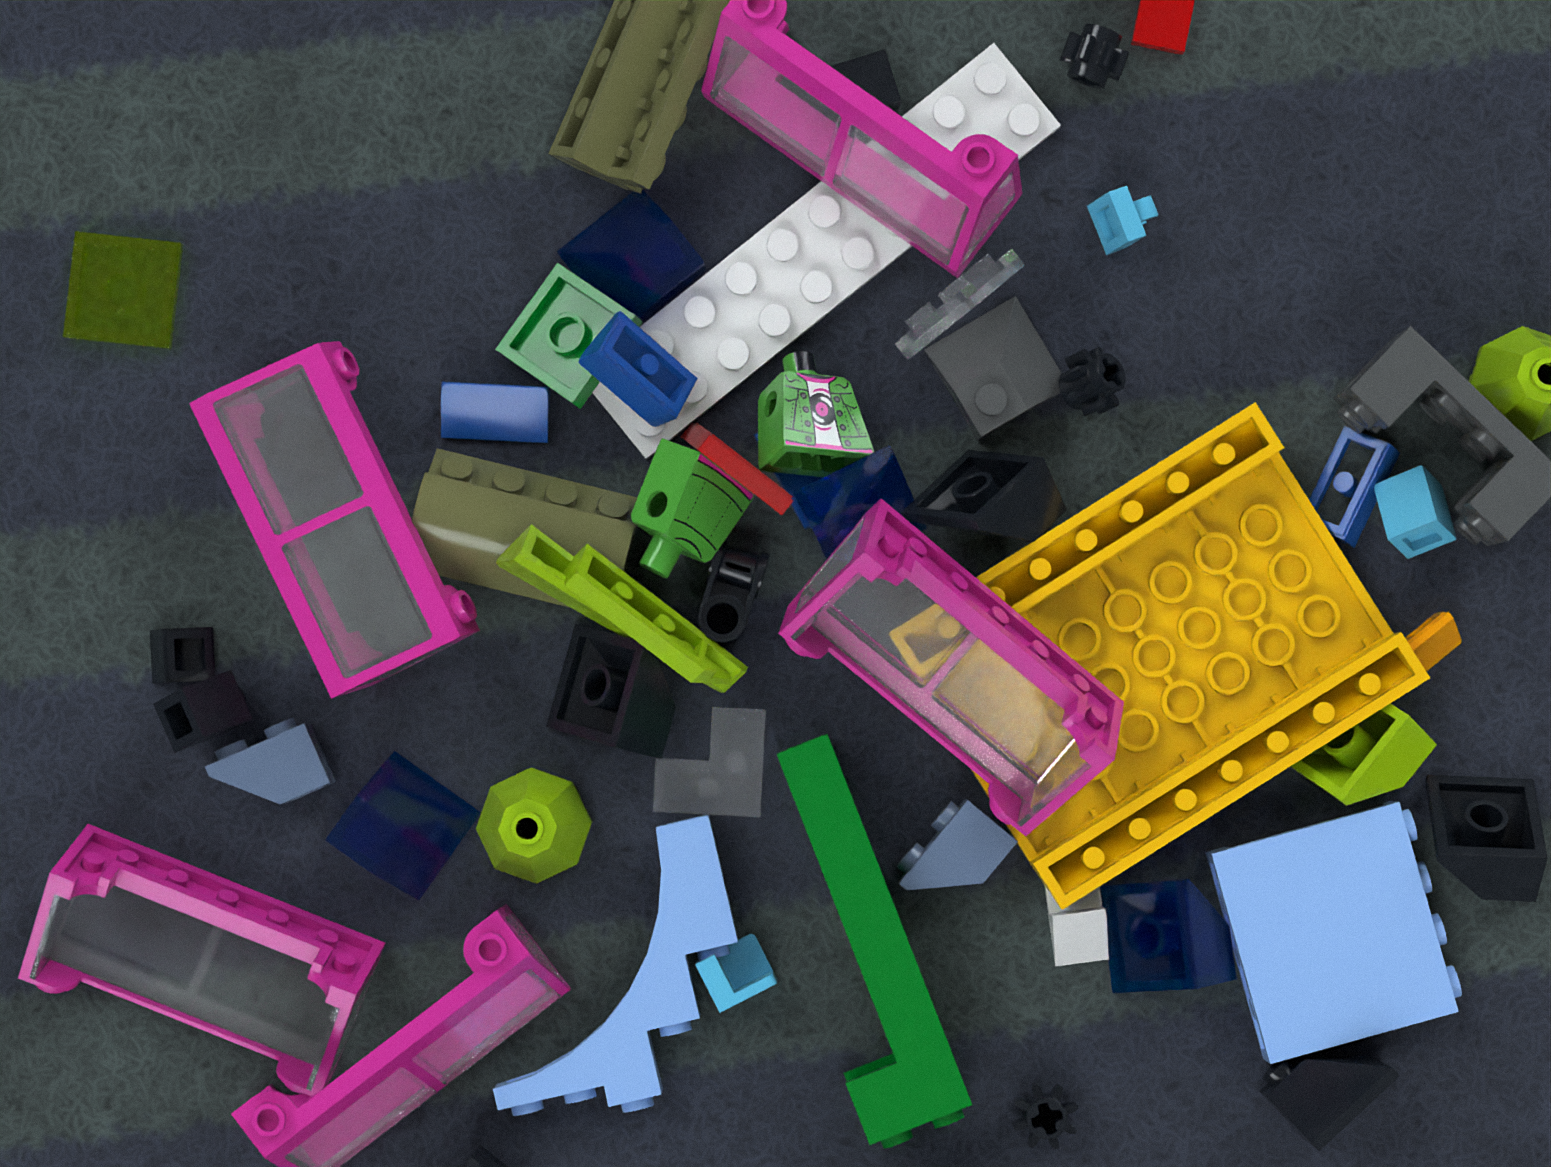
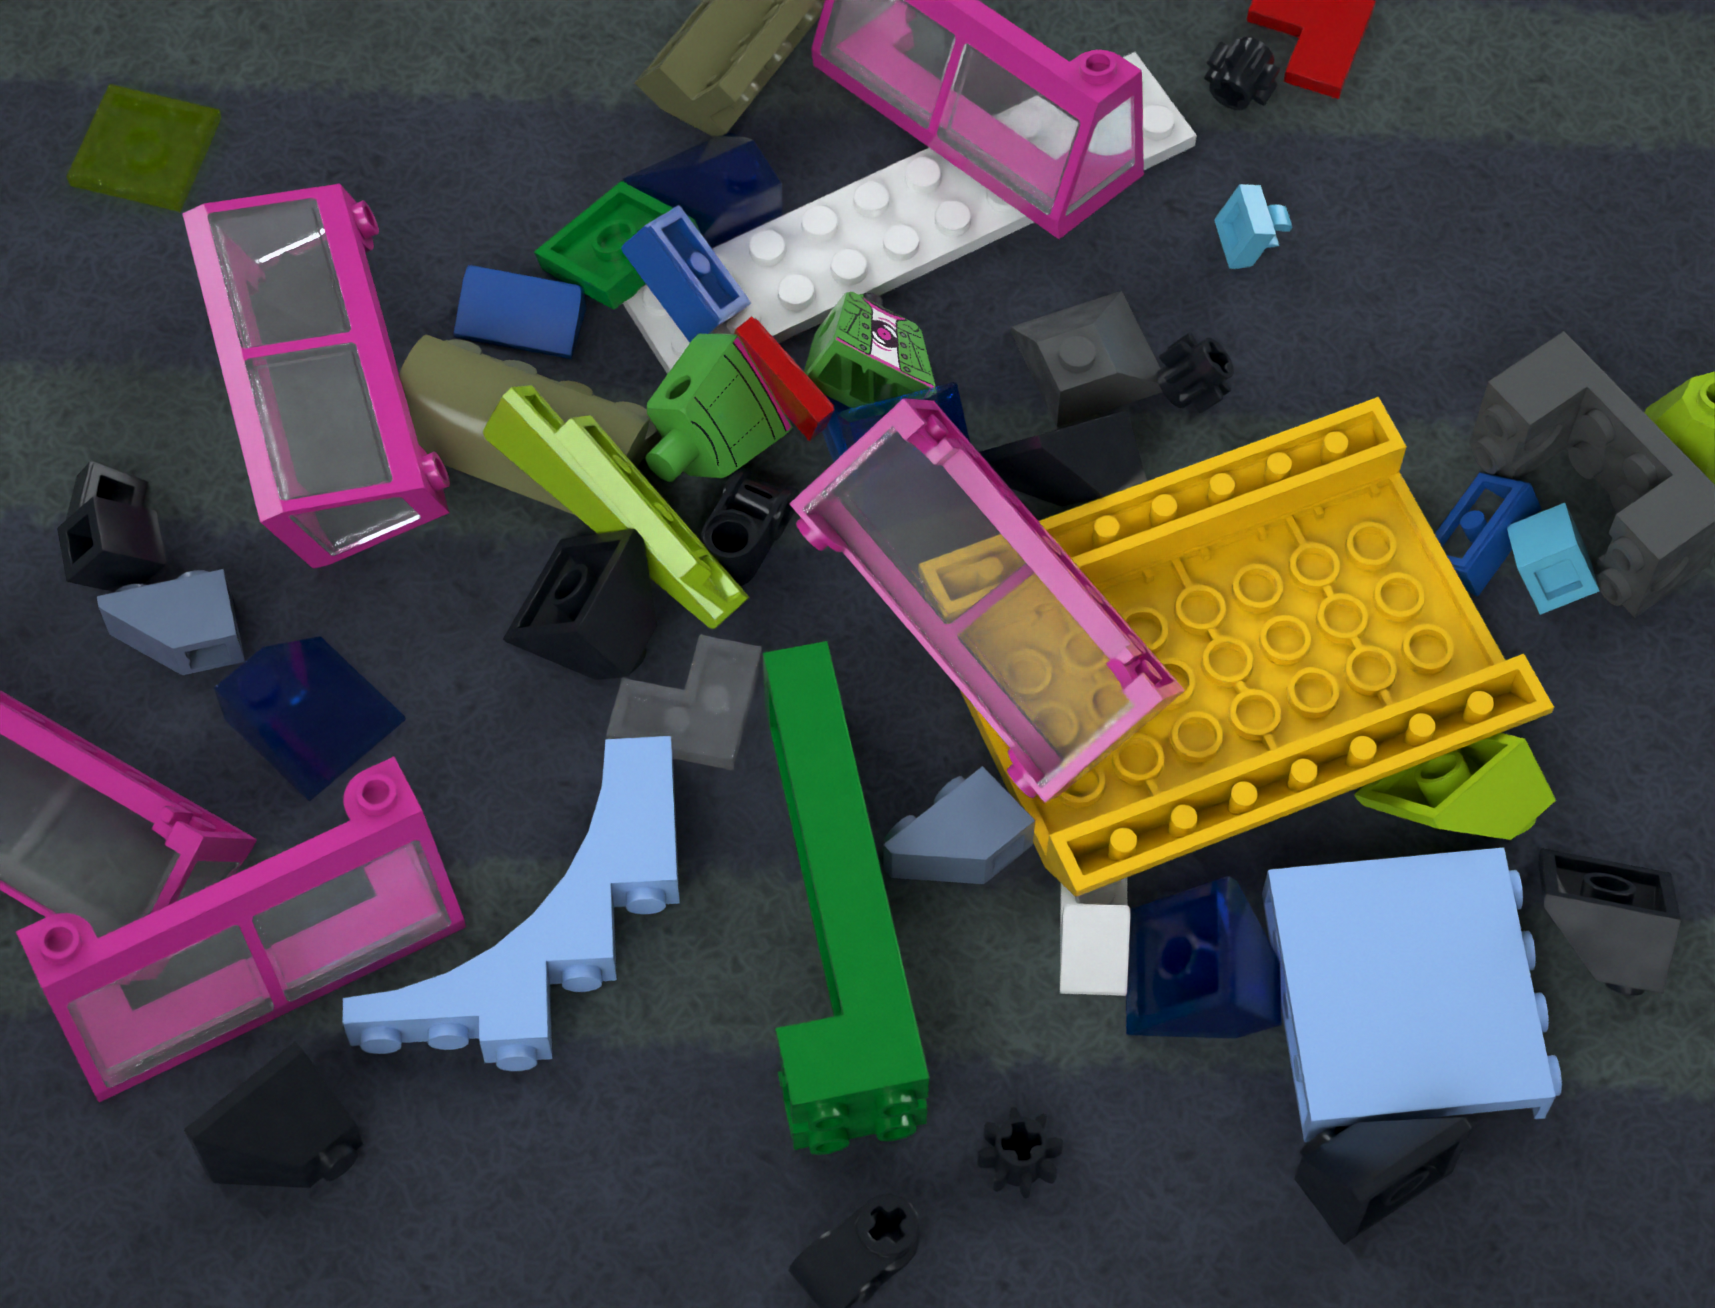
camera: 10 degrees right, 25 degrees down
(560, 821) = (462, 732): lime cone -> none
(738, 974) = (669, 937): medium azure panel -> none
(958, 300) = (1059, 257): clear plate -> none
(1434, 639) = (1571, 694): light orange slope -> none

